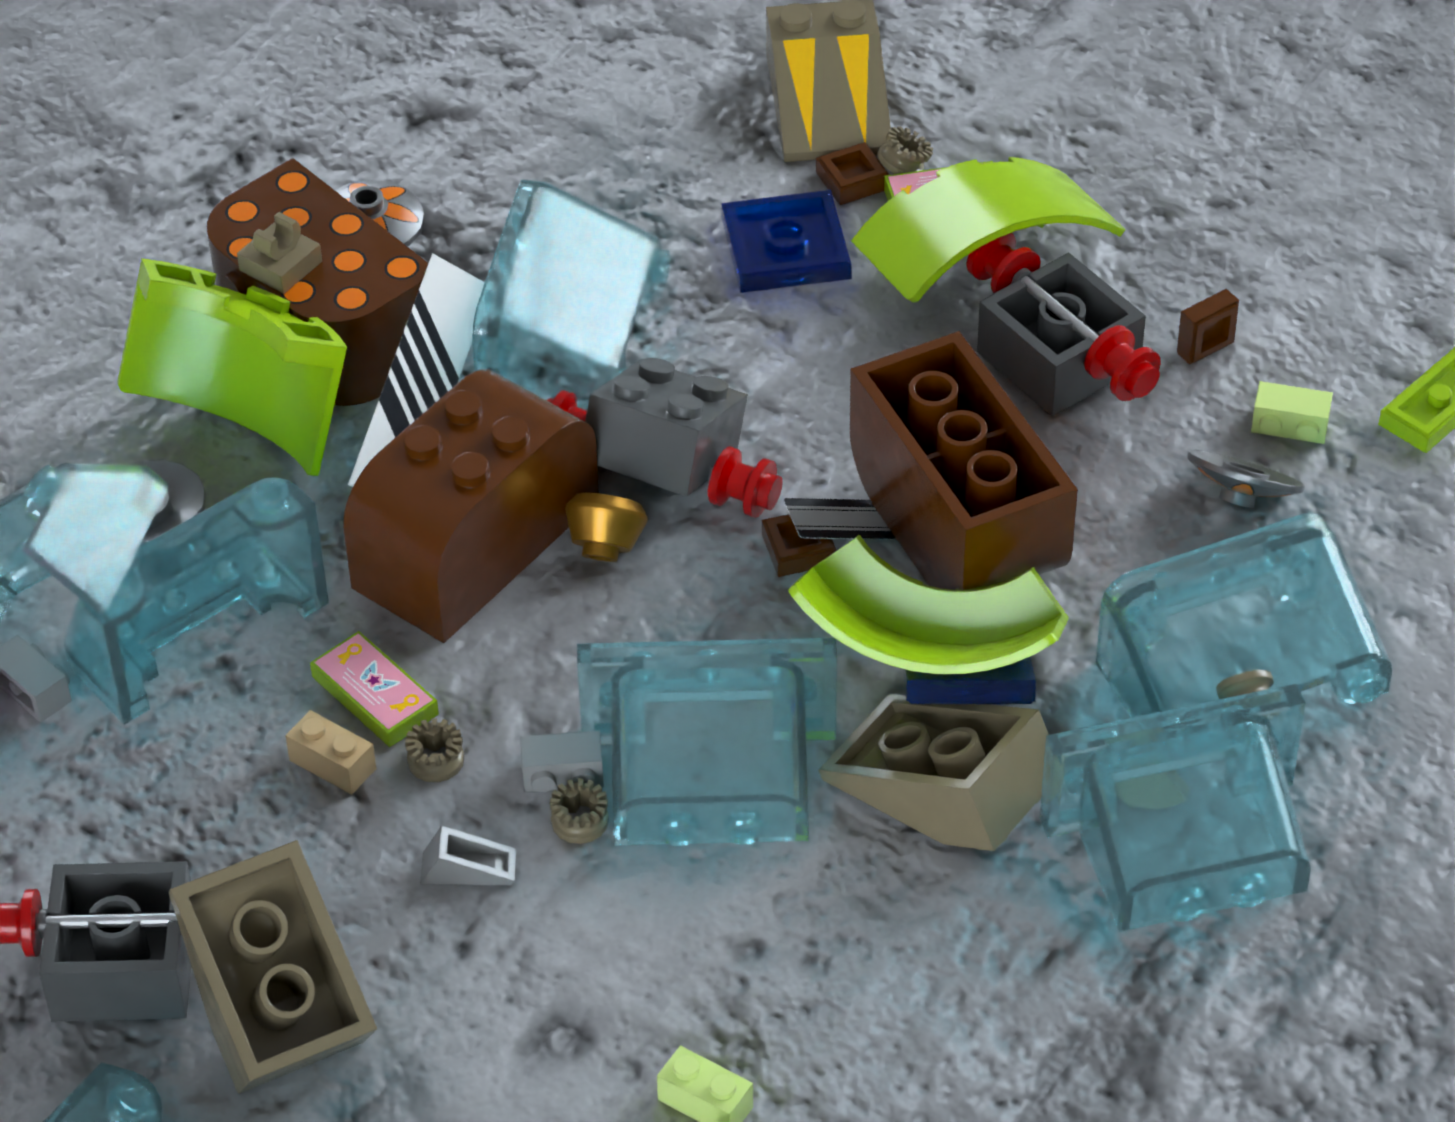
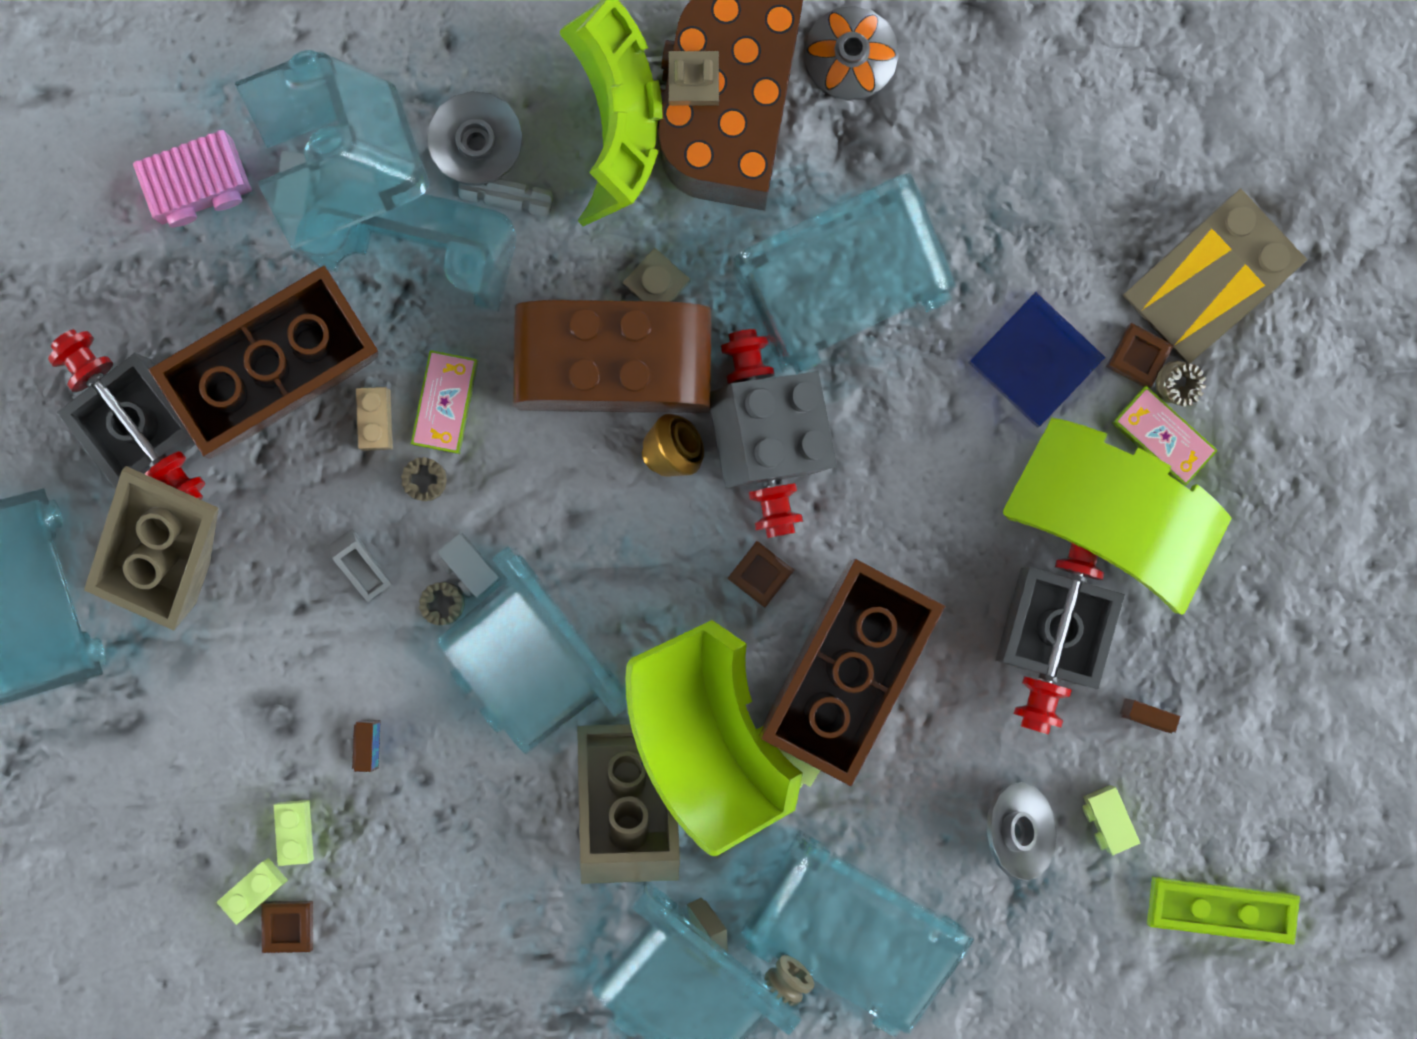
camera: 50 degrees right, 40 degrees up
(188, 742) = (265, 363): none -> reddish brown brick
(427, 355) = (684, 245): white sticker -> none
(670, 955) = (366, 745): none -> reddish brown tile
(837, 519) = (791, 587): sticker -> none

